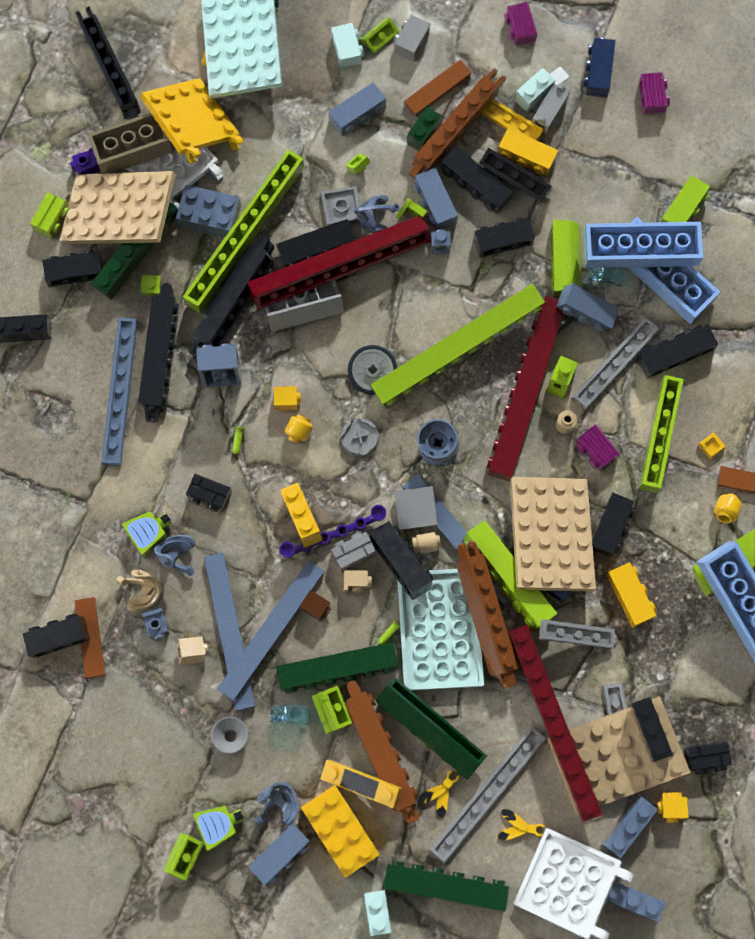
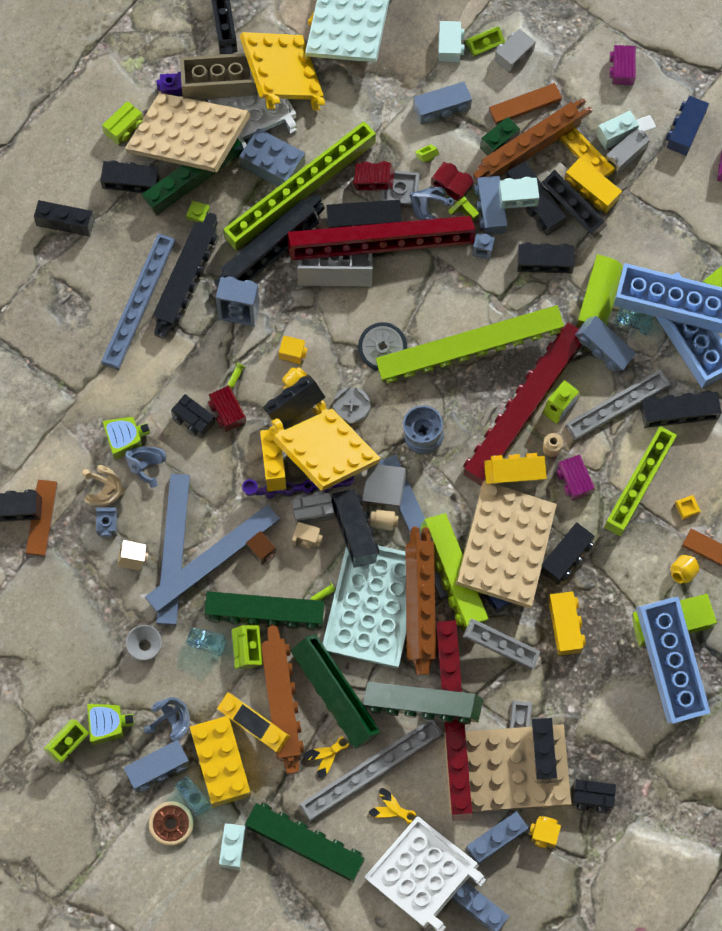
camera: 15 degrees right, 5 degrees down
(239, 475) = (227, 408): none -> dark red brick
(304, 451) = (294, 401): none -> black brick
(313, 201) = (374, 176): none -> dark red brick
(322, 873) = (192, 796): none -> clear light blue leg
(323, 903) = (173, 836): none -> copper wheel
(348, 489) = (324, 447): none -> yellow plate
(392, 185) = (453, 181): none -> dark red brick
(460, 180) = (518, 193): none -> light aqua brick
(521, 717) = (423, 702): none -> brick
(538, 456) = (515, 468): none -> yellow brick

